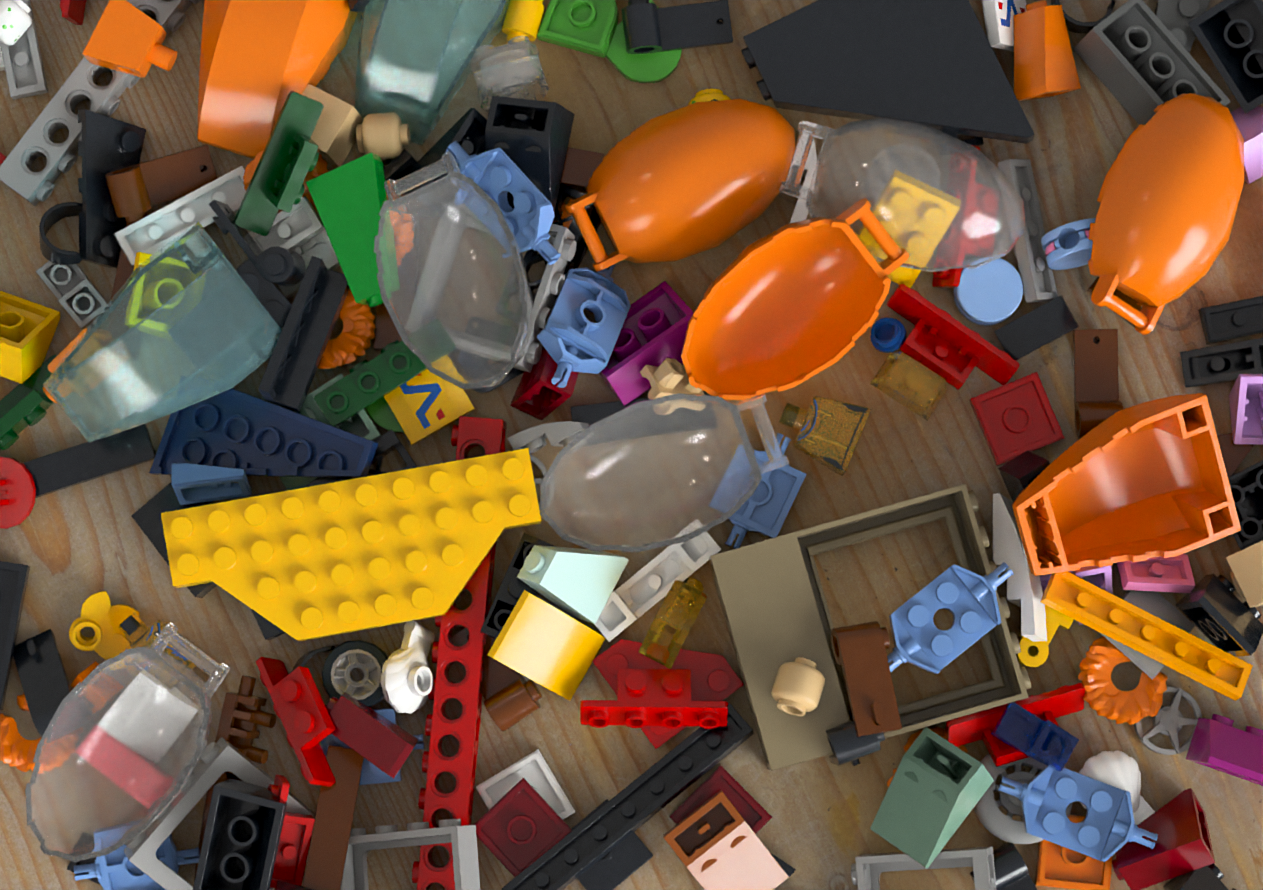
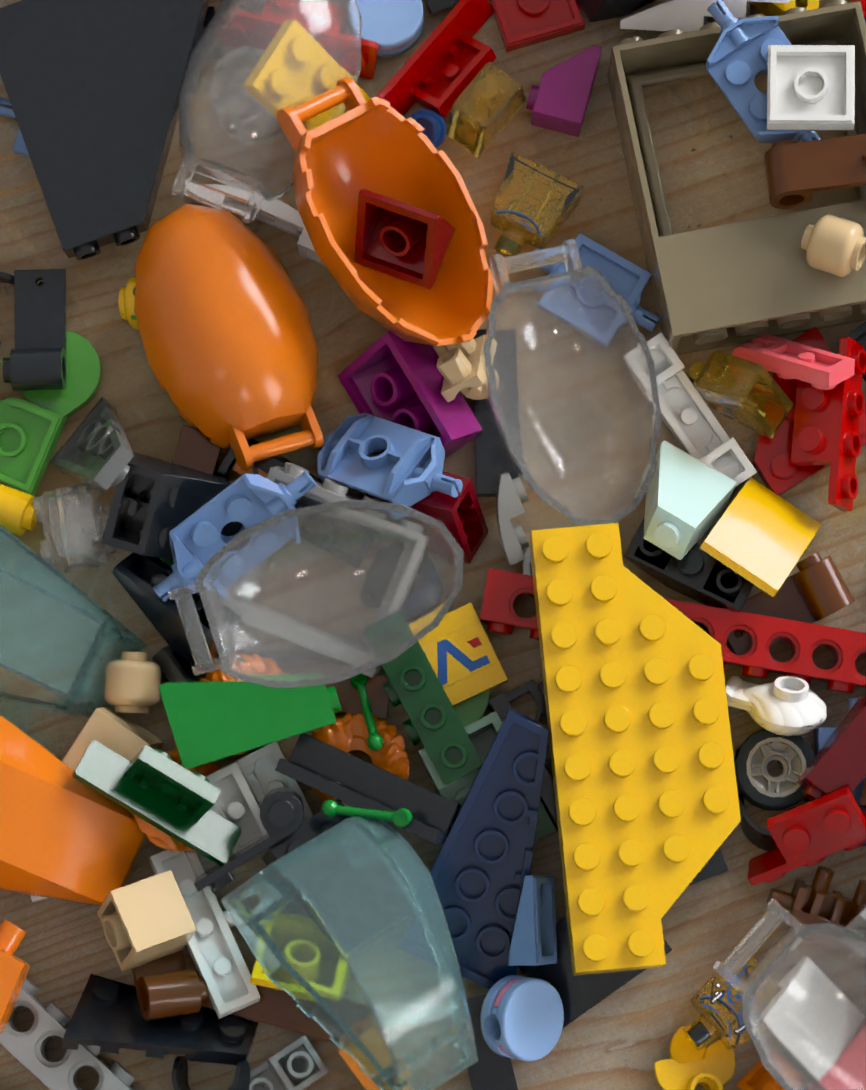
camera: 80 degrees left, 5 degrees down
(132, 479) = (522, 1018): none -> light blue head
(184, 165) = (146, 920): none -> tan head
(276, 360) = (401, 817): none -> green hinge
(348, 337) = (374, 740): none -> green hinge
(571, 82) = (96, 449): none -> dark grey wing
(702, 664) = (797, 361): none -> coral plate
(776, 318) = (400, 239): none -> dark red slope
(932, 452) = (565, 93): none -> magenta slope
(936, 655) = (811, 87): none -> white tile

